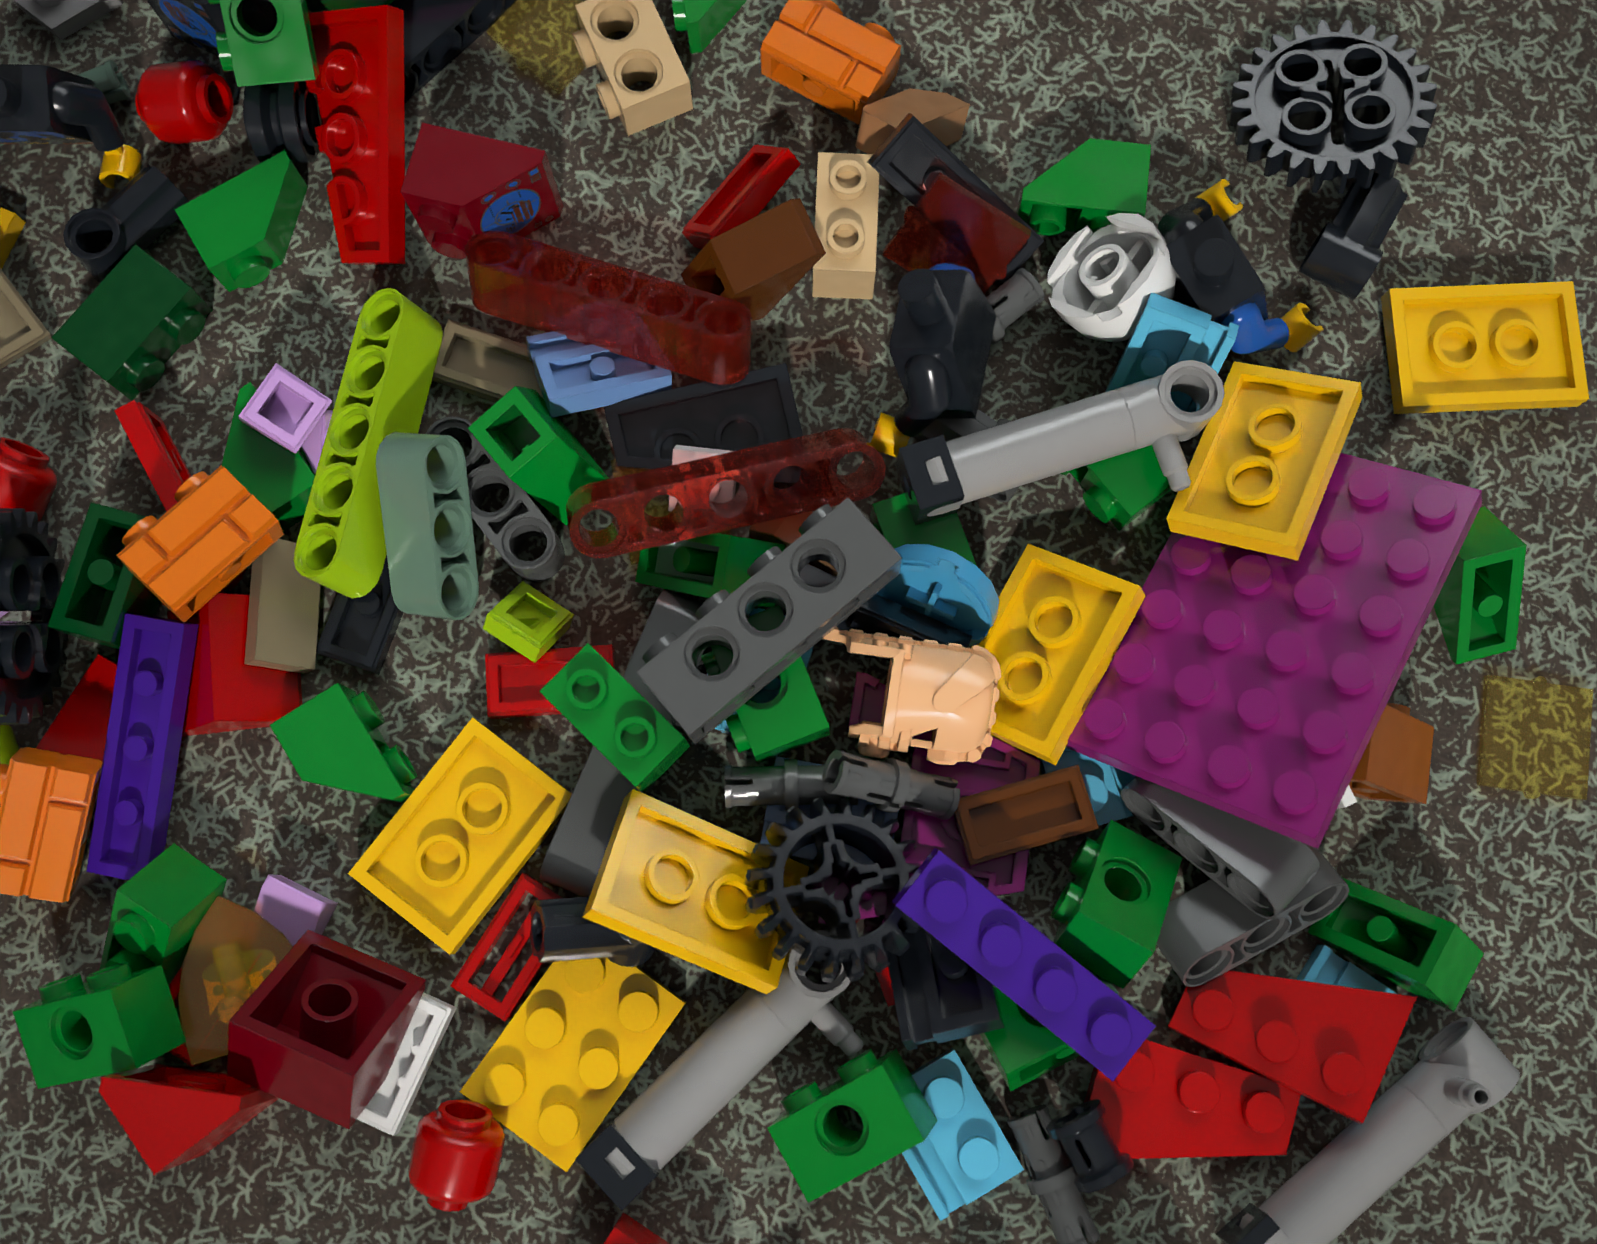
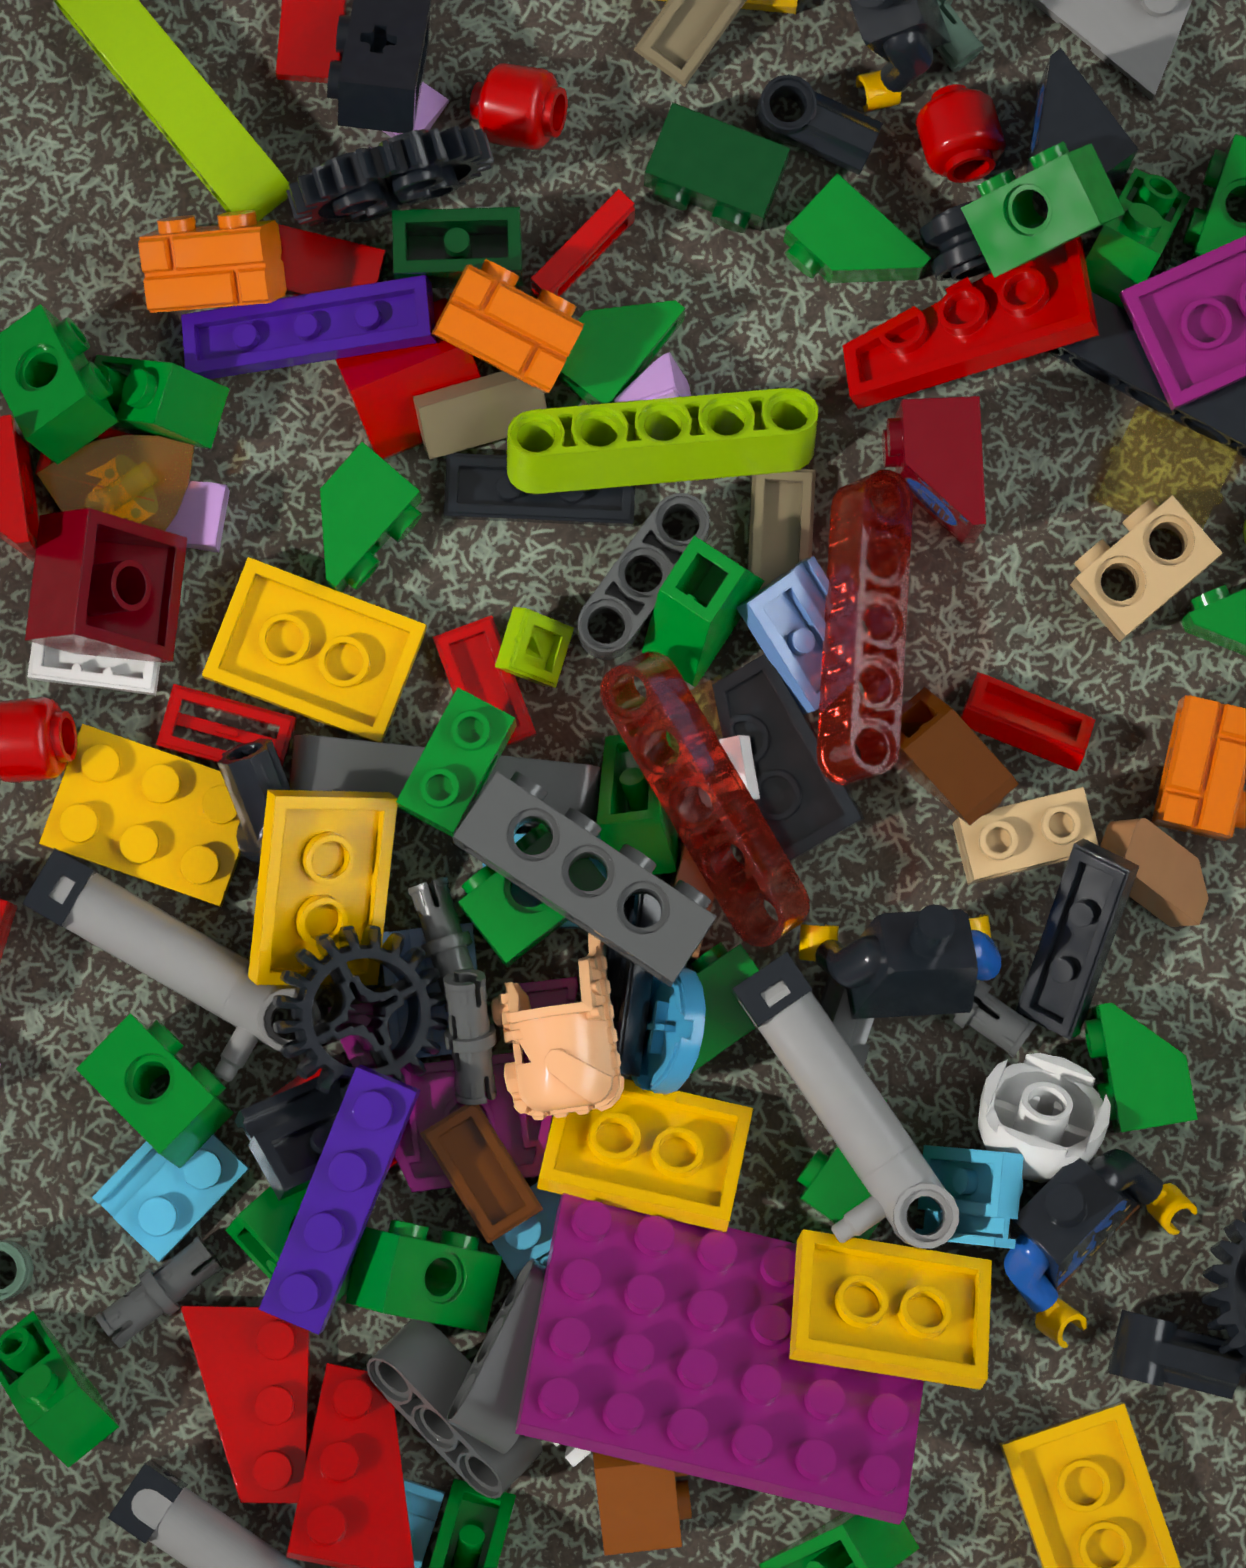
camera: 70 degrees right, 5 degrees up
(285, 409) = (663, 354): lavender slope -> none
(427, 525) = (593, 526): sand green beam -> none
(958, 230) = (1037, 950): clear red piece -> none
(1090, 1146) = (196, 1312): black bush -> none

